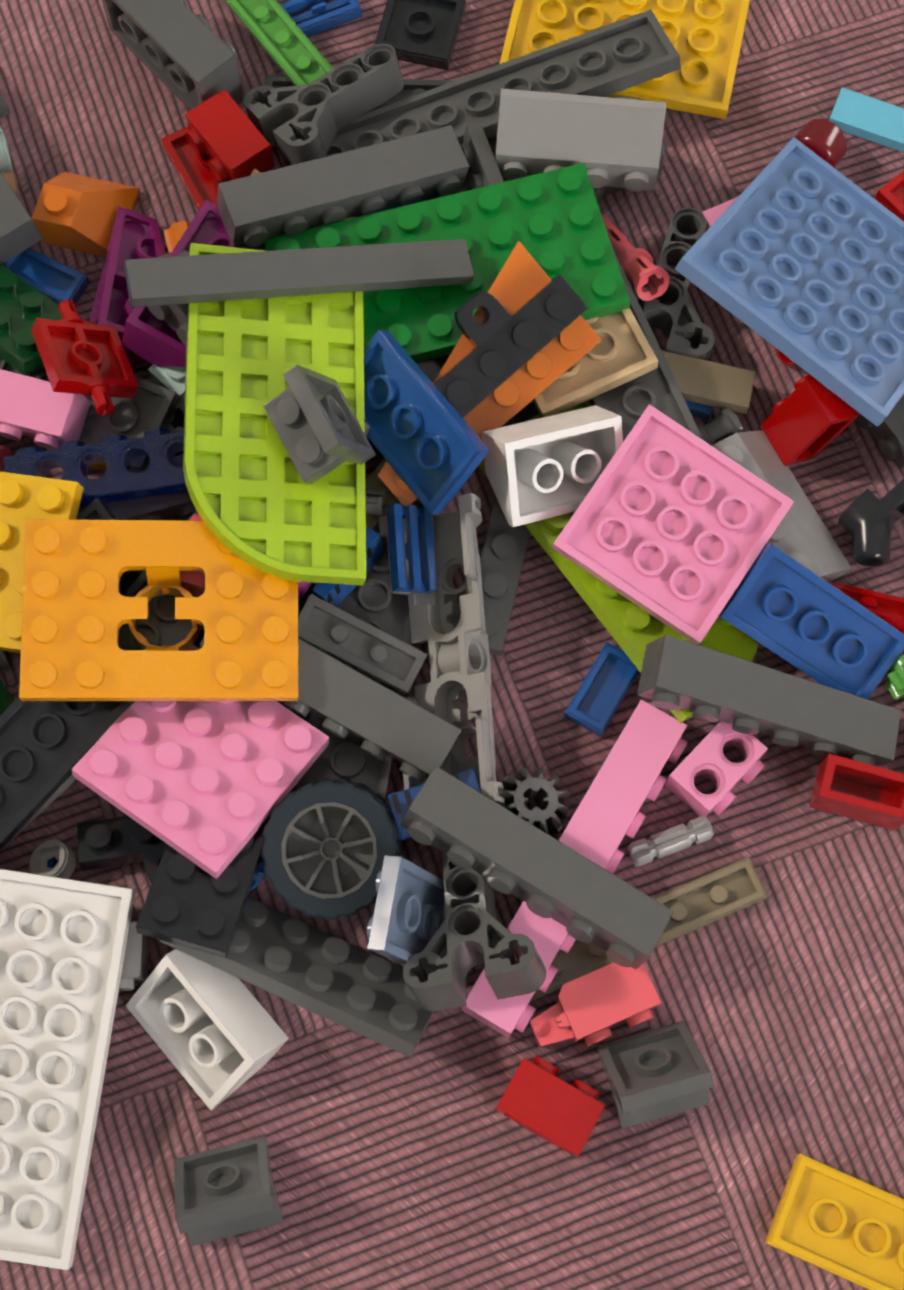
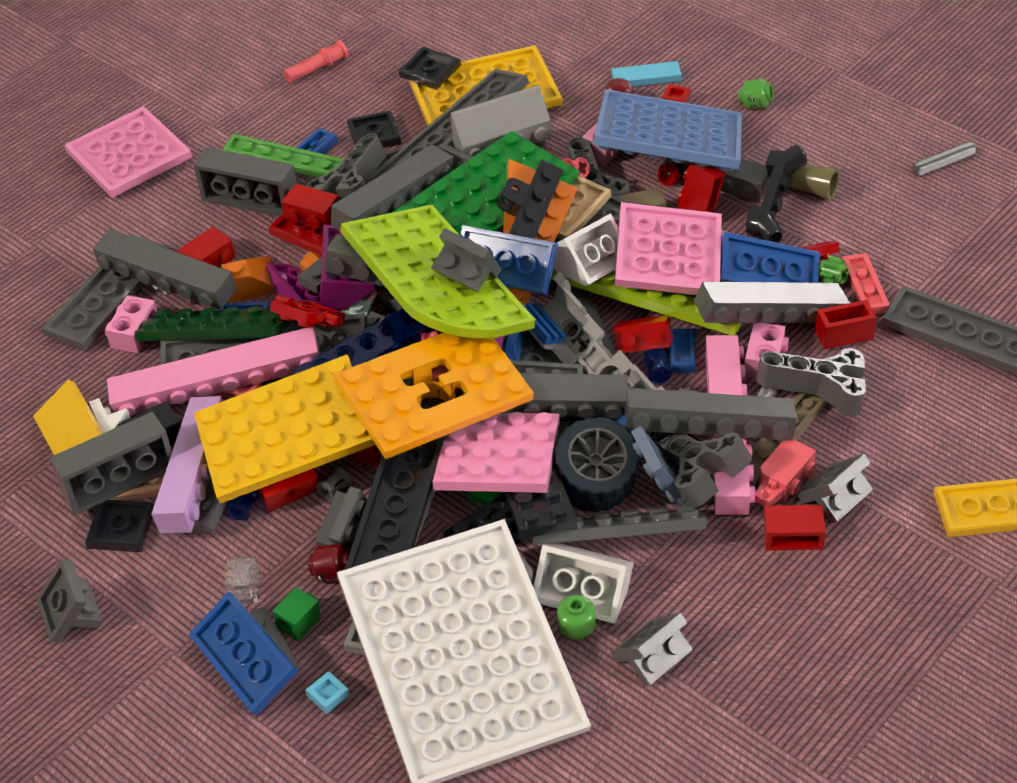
camera: 25 degrees left, 25 degrees down
(48, 142) = (210, 247): none -> red piece
(170, 1090) = (576, 617): none -> bright green head
(297, 272) = (404, 215): dark grey tile -> none
(546, 702) = (657, 365): none -> clear blue bush
(553, 643) = (643, 334): none -> red piece
(763, 902) = (832, 379): none -> dark grey beam

